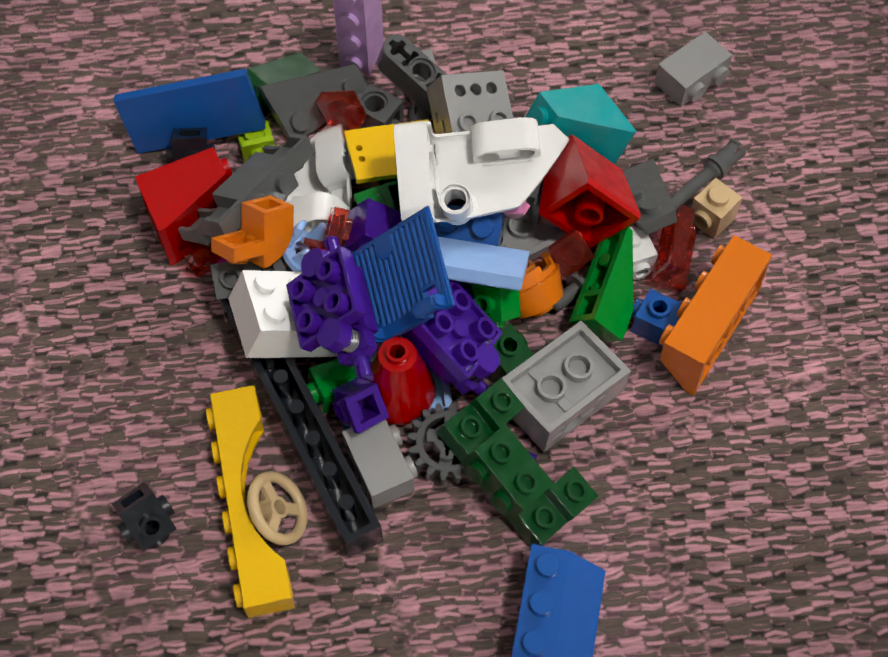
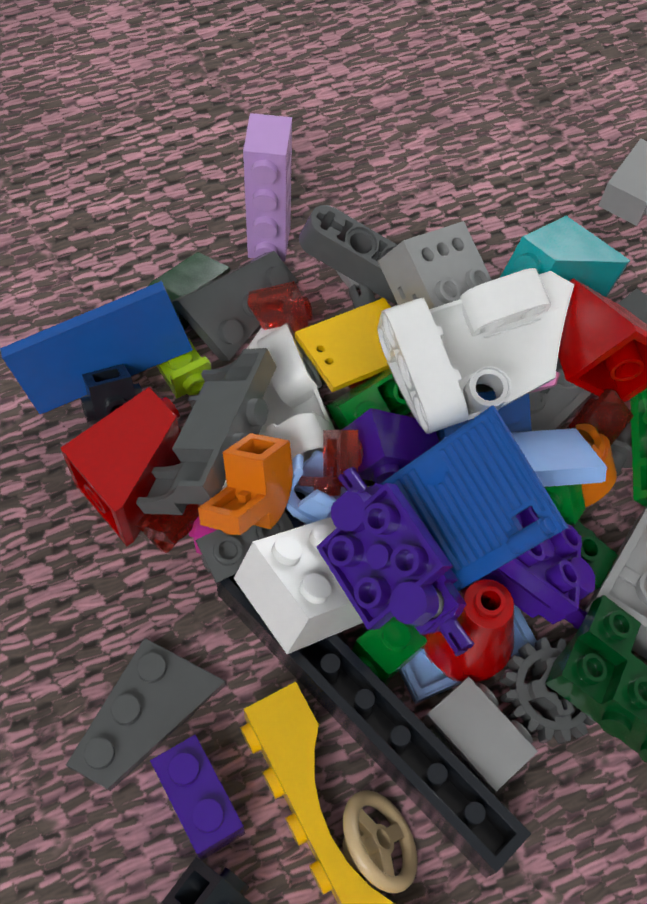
camera: 20 degrees left, 0 degrees up
(148, 377) = (141, 711): none -> dark grey wing
(159, 446) = (198, 797): none -> dark purple brick
(353, 406) = (439, 675): dark purple brick -> none
(380, 107) = (324, 292): dark grey brick -> none

